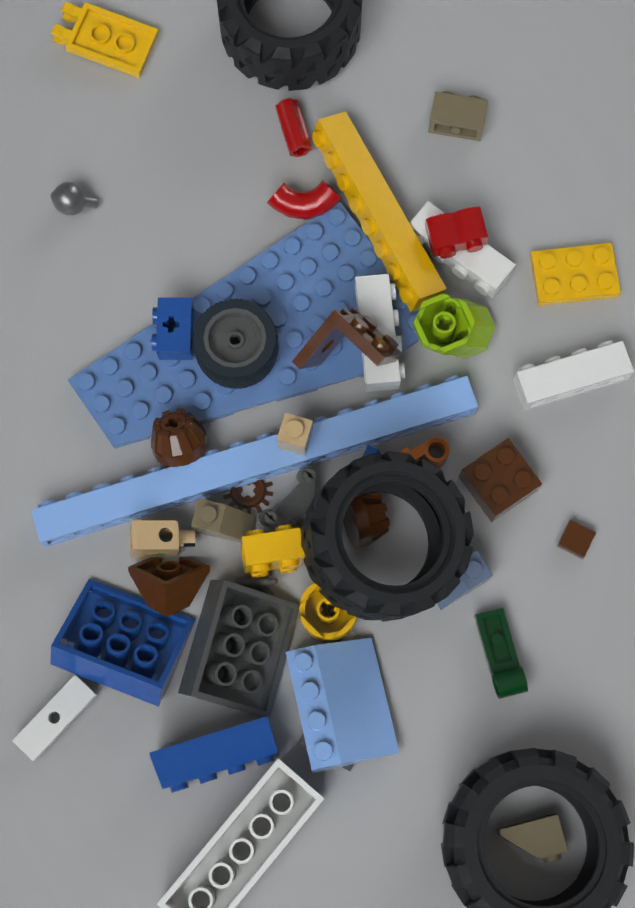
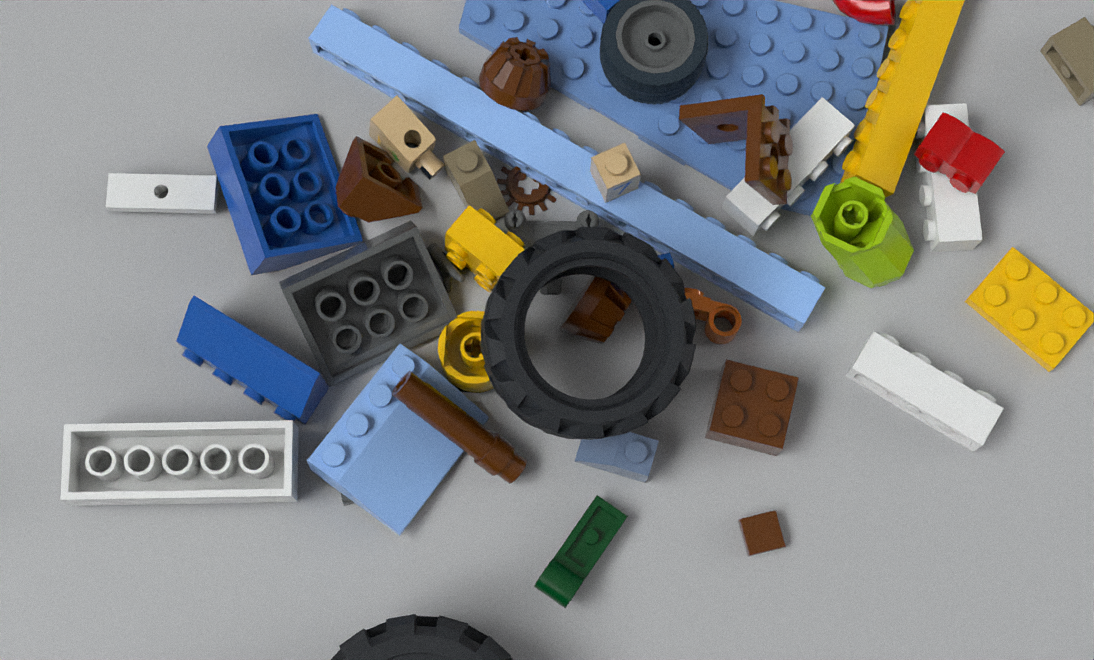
camera: 45 degrees right, 0 degrees up
(394, 654) = (487, 448): none -> reddish brown piece

